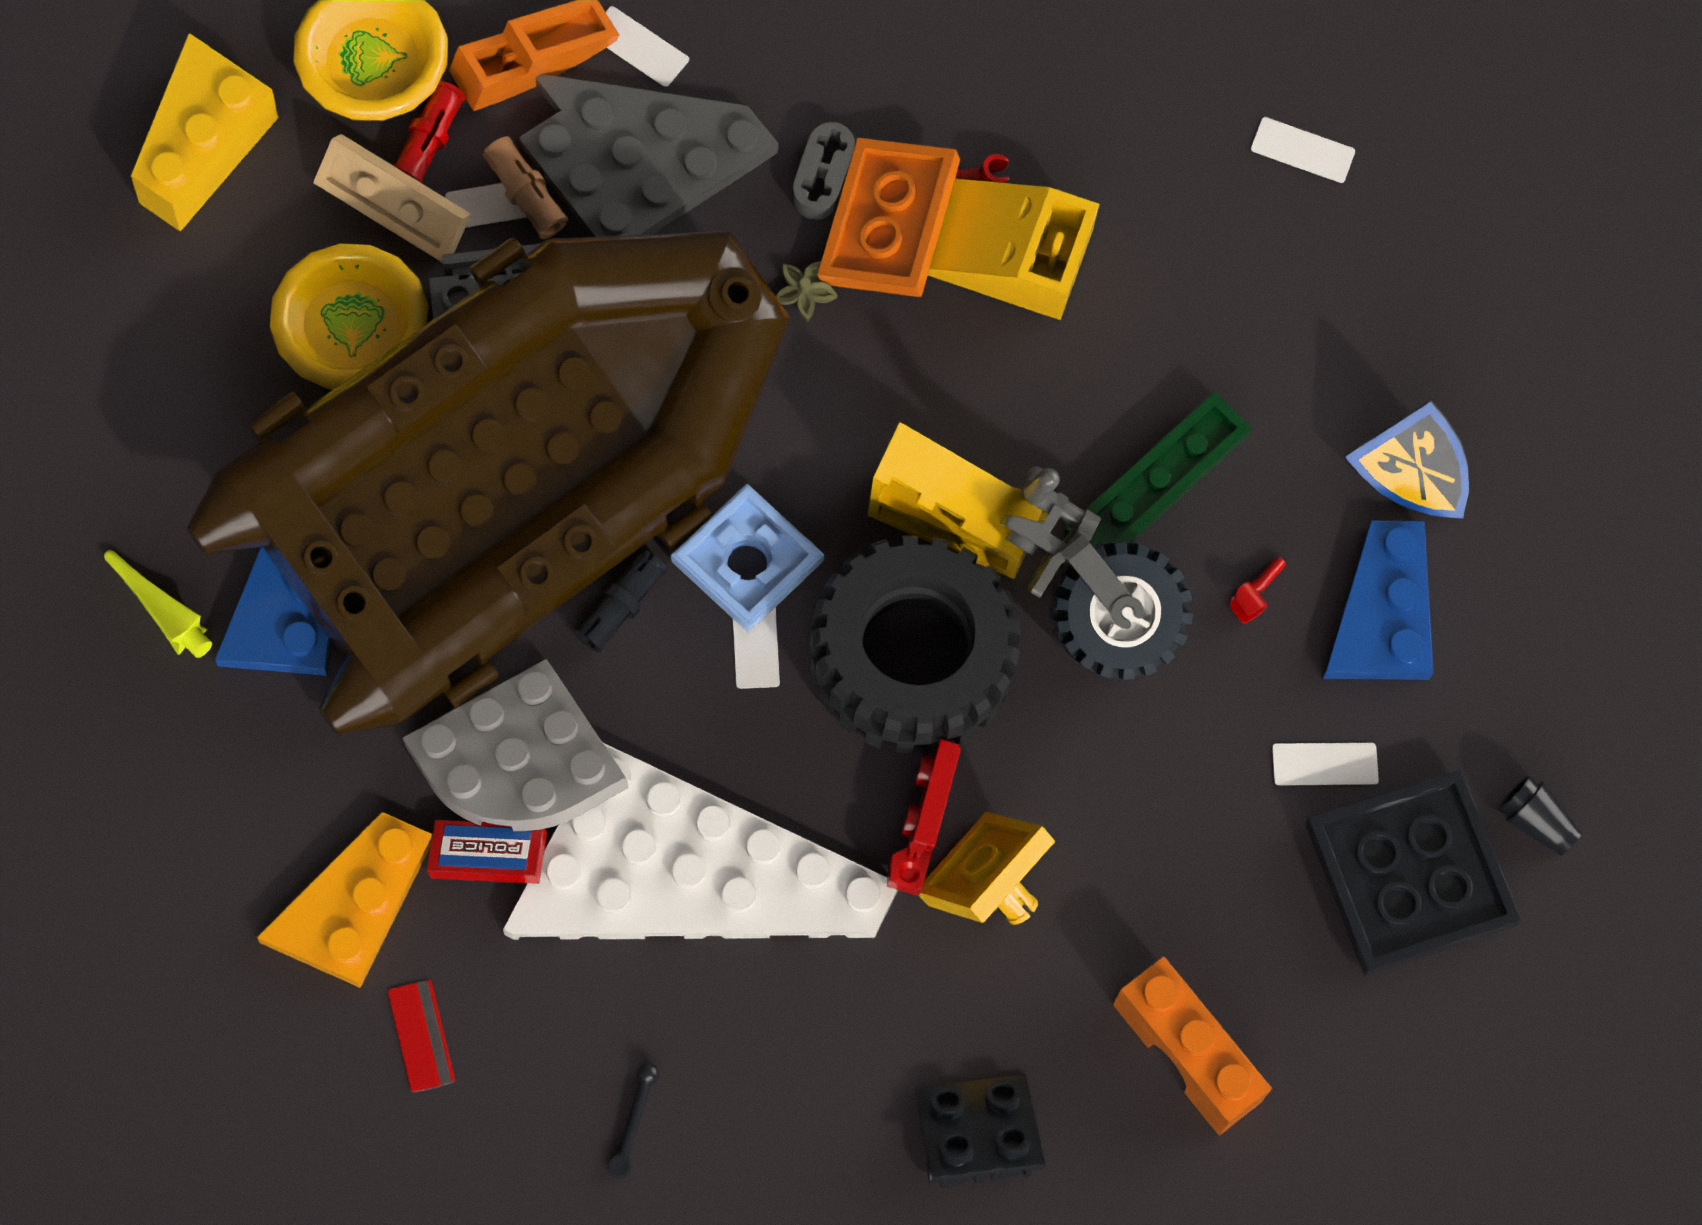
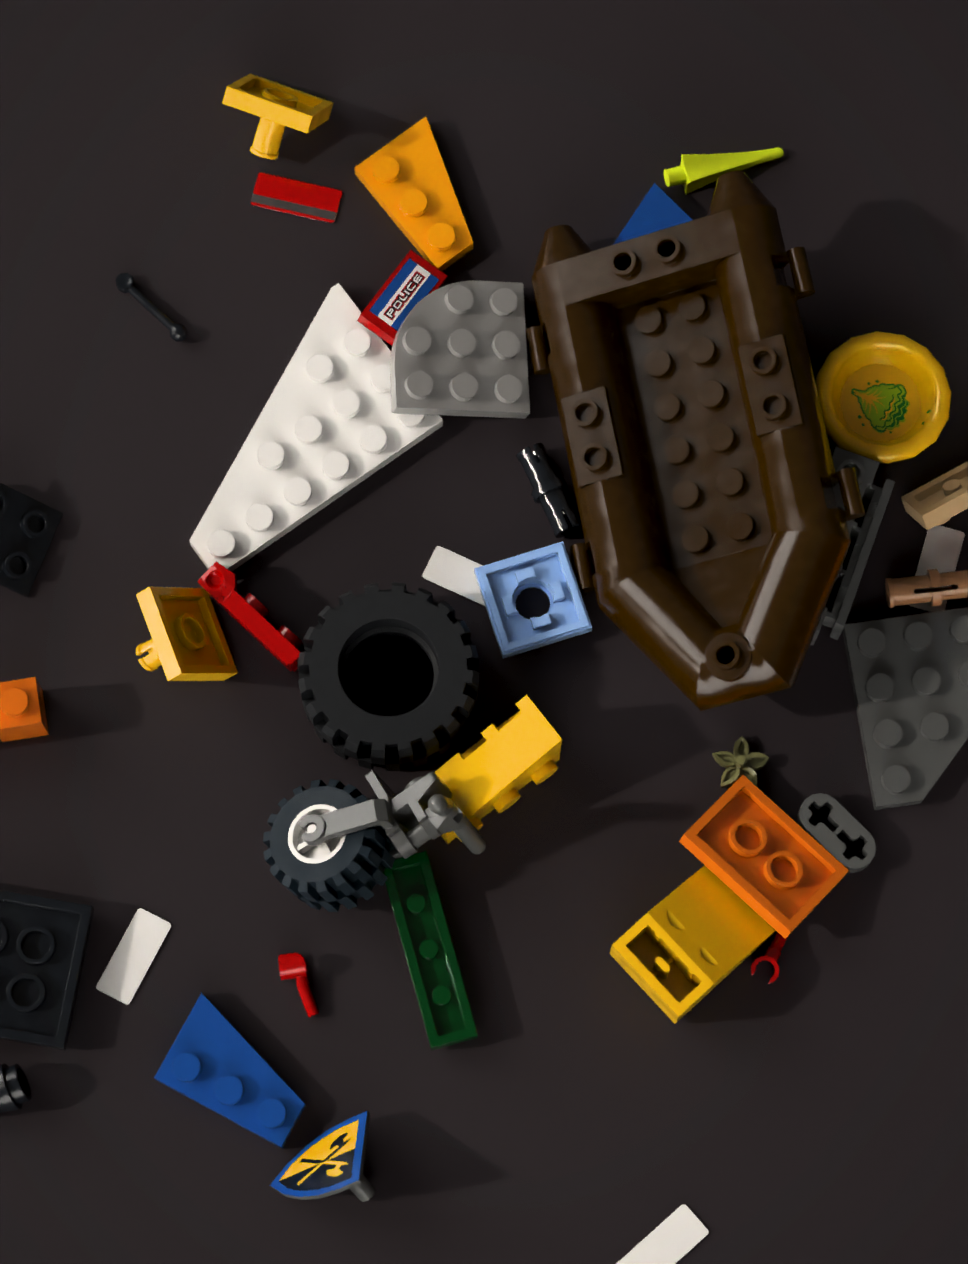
camera: 125 degrees right, 5 degrees up
(336, 1093) = (277, 108): none -> yellow tile

